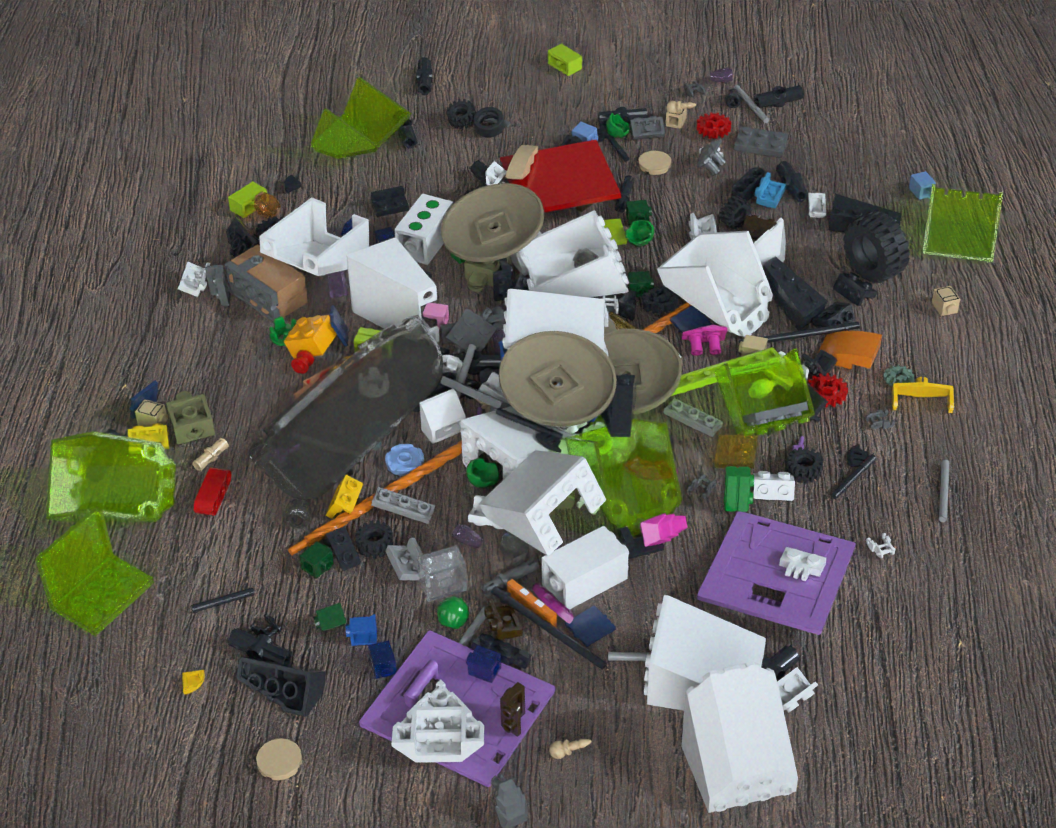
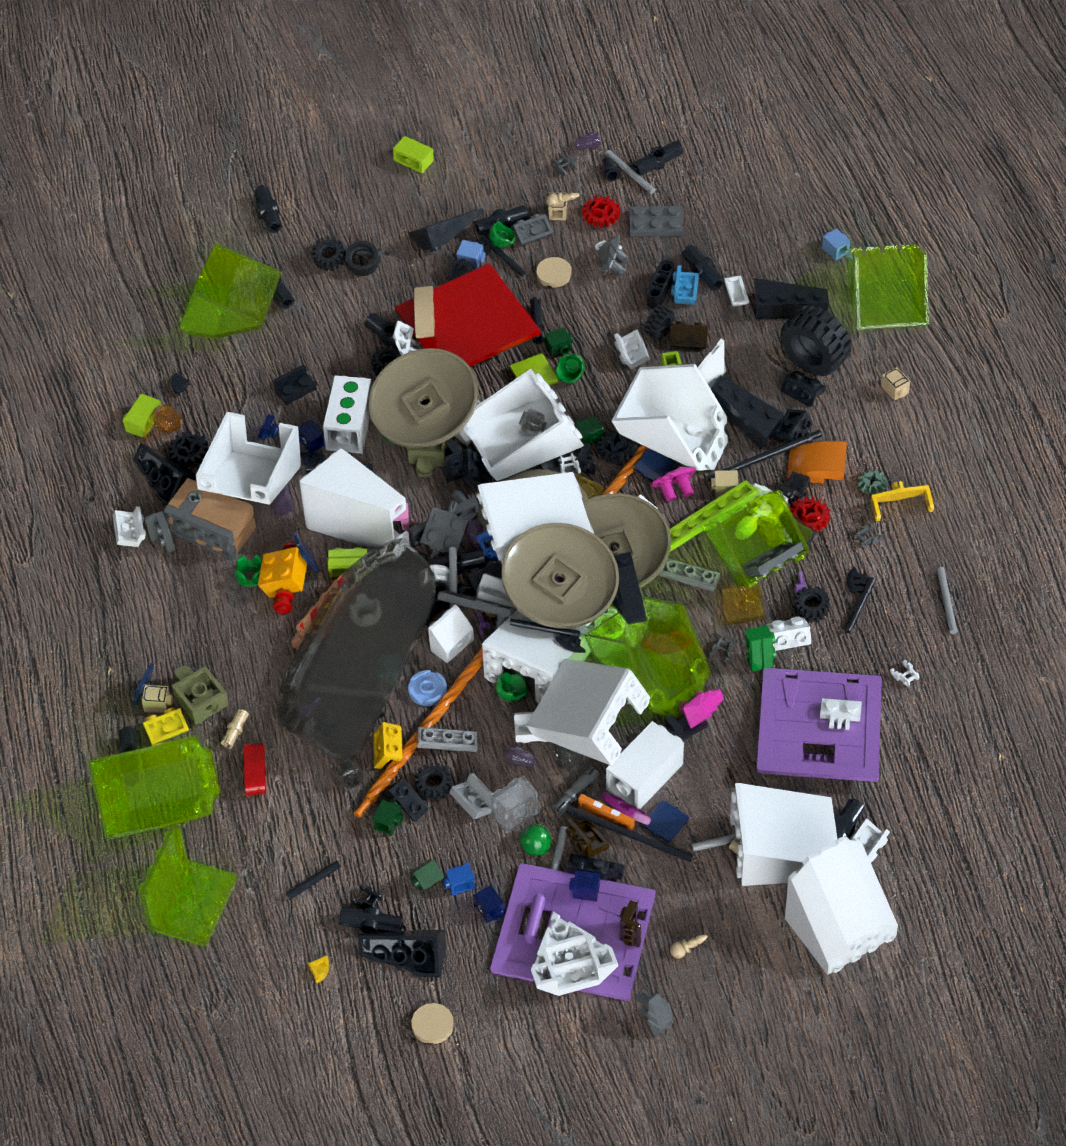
camera: 15 degrees left, 10 degrees up
(560, 115) = (442, 232): none -> black wedge

